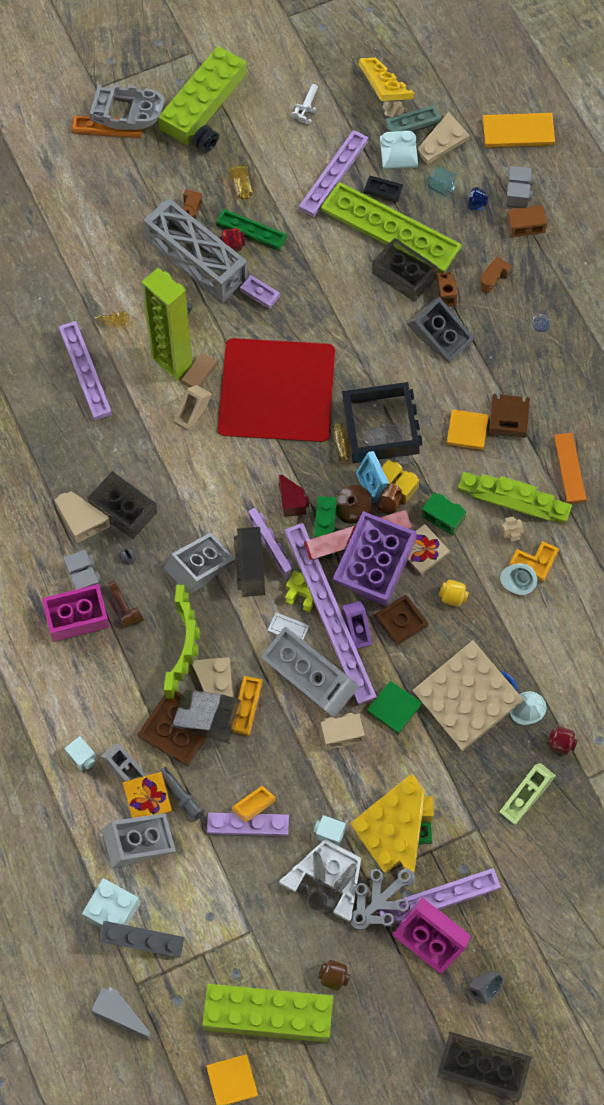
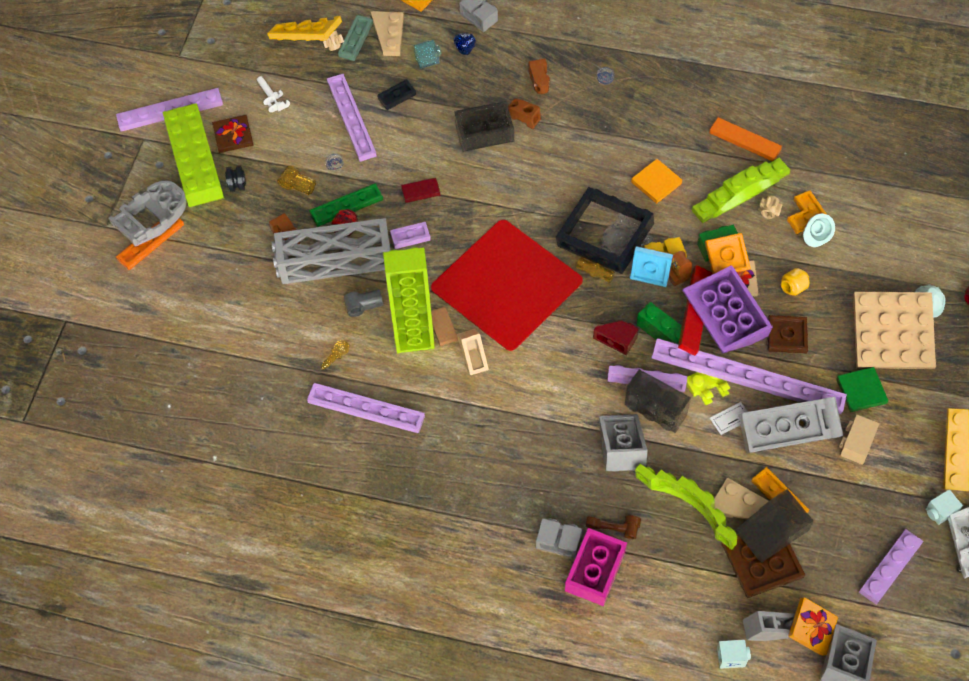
camera: 50 degrees left, 5 degrees down
(80, 516) = (502, 503): tan slope -> none
(123, 504) = (522, 462): clear smoke brick -> none
(125, 560) = (569, 496): dark grey hinge -> none
(185, 800) = (835, 599): dark grey pin -> none
(214, 38) = (153, 113): none -> lavender plate
(248, 107) = (232, 133): none -> reddish brown tile
(253, 804) = (878, 548): light orange tile -> none
(283, 193) = (334, 162): none -> clear tile
(309, 270) = (420, 190): none -> dark red tile
(353, 511) = (668, 299): reddish brown dish -> none
(357, 624) = (769, 360): medium lavender slope -> none
(386, 223) = (429, 113): lime plate -> none
(398, 150) = (371, 63): light aqua slope -> none
(432, 525) = (727, 252): none -> light orange tile
(441, 329) = (555, 139): dark grey slope -> none
(509, 410) = (665, 142): reddish brown container -> none
(526, 221) = (512, 26): dark orange brick -> none

